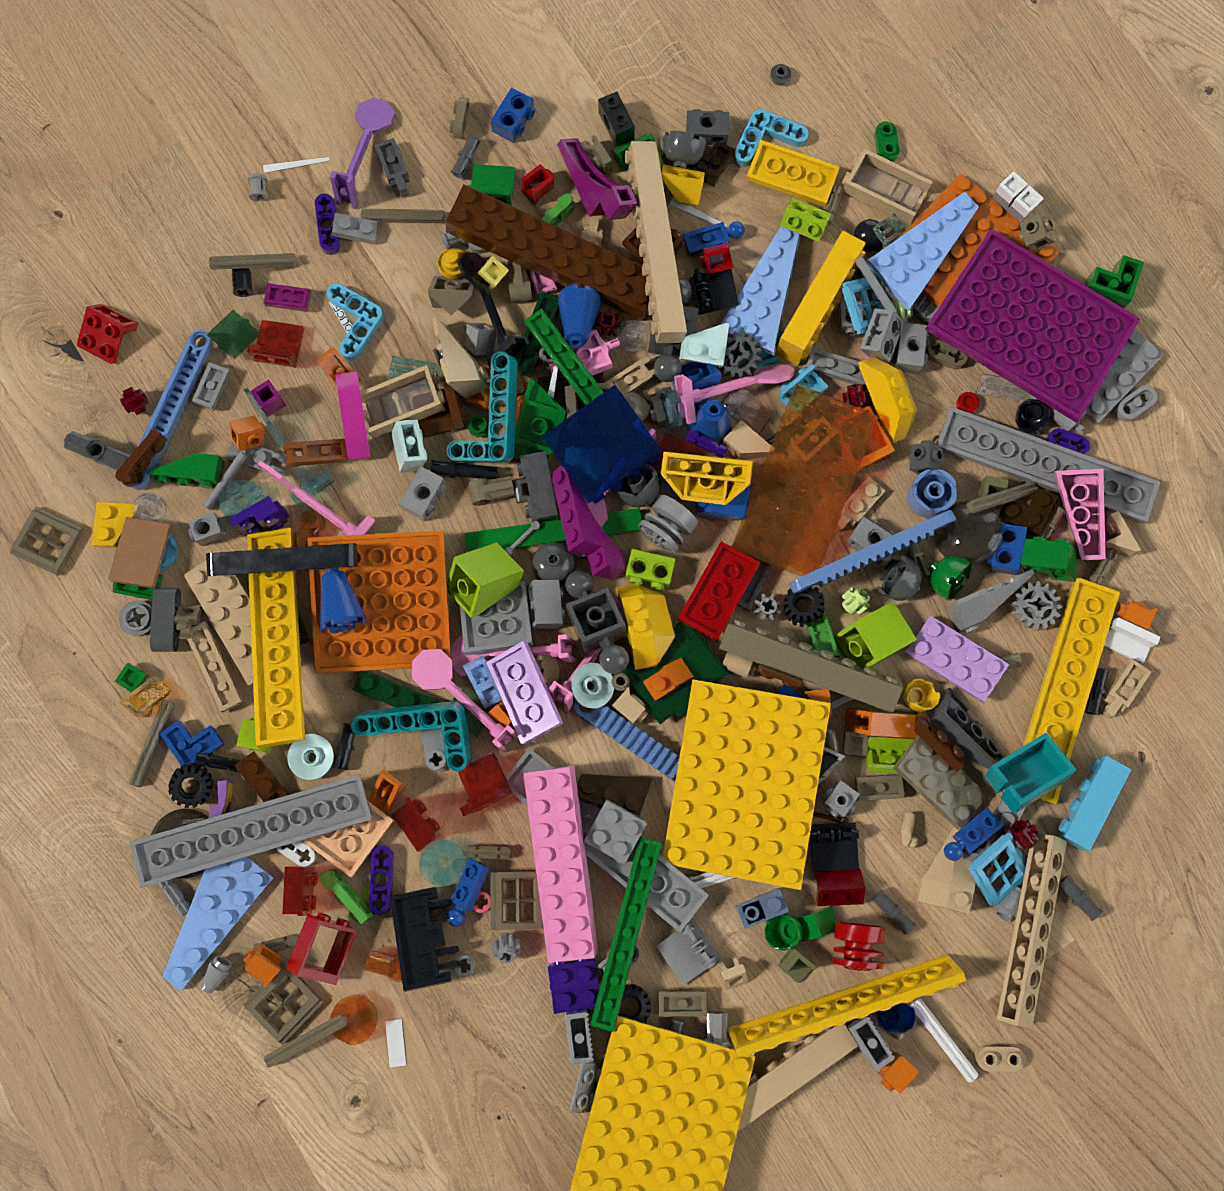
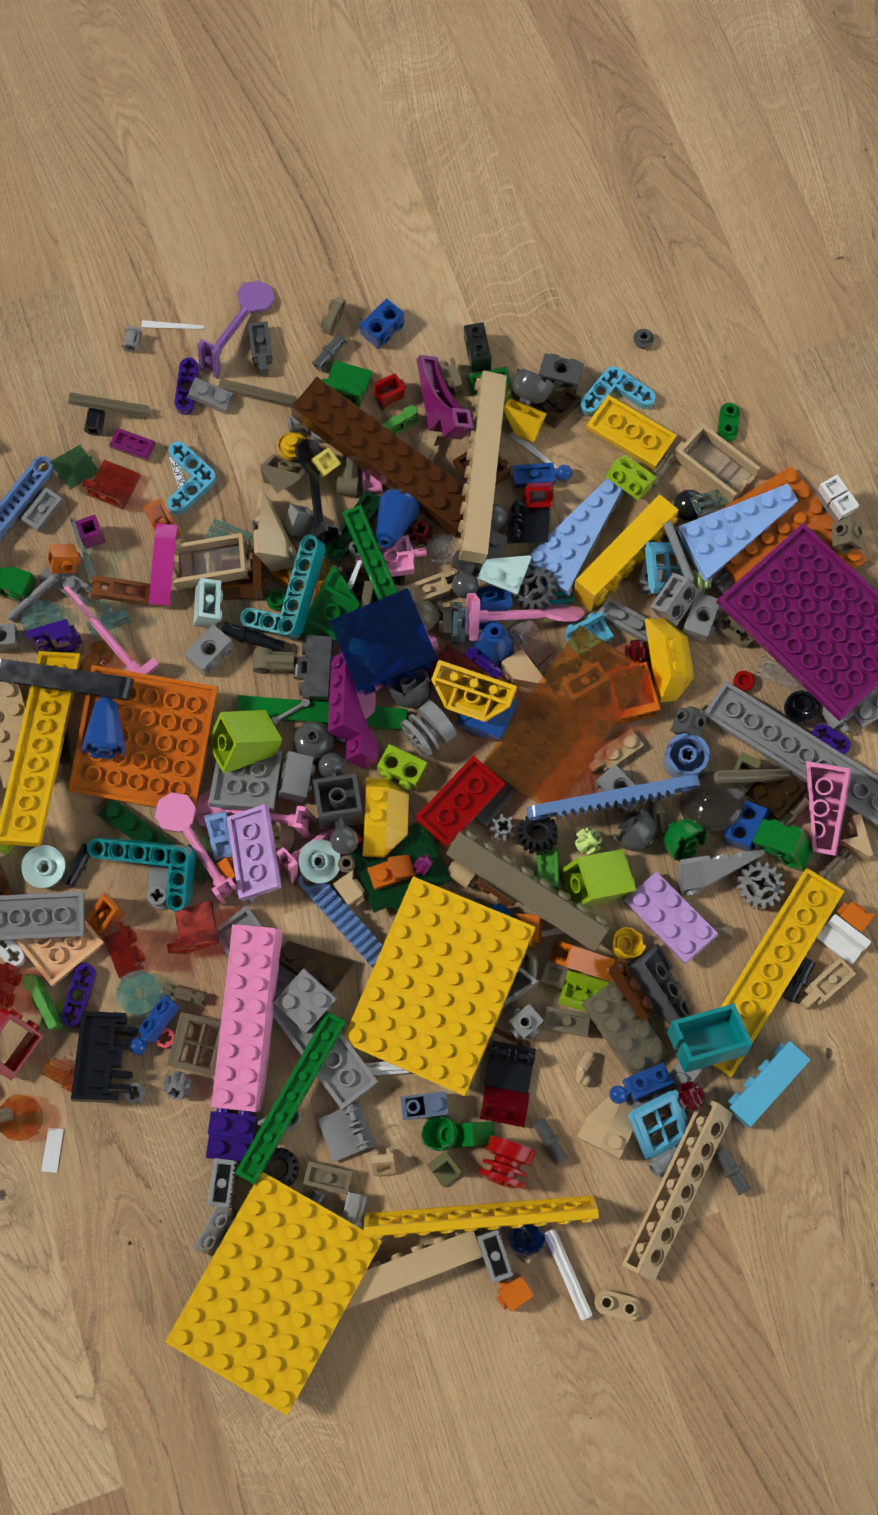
camera: 15 degrees right, 5 degrees down
(698, 664) = (422, 864): none -> magenta plate

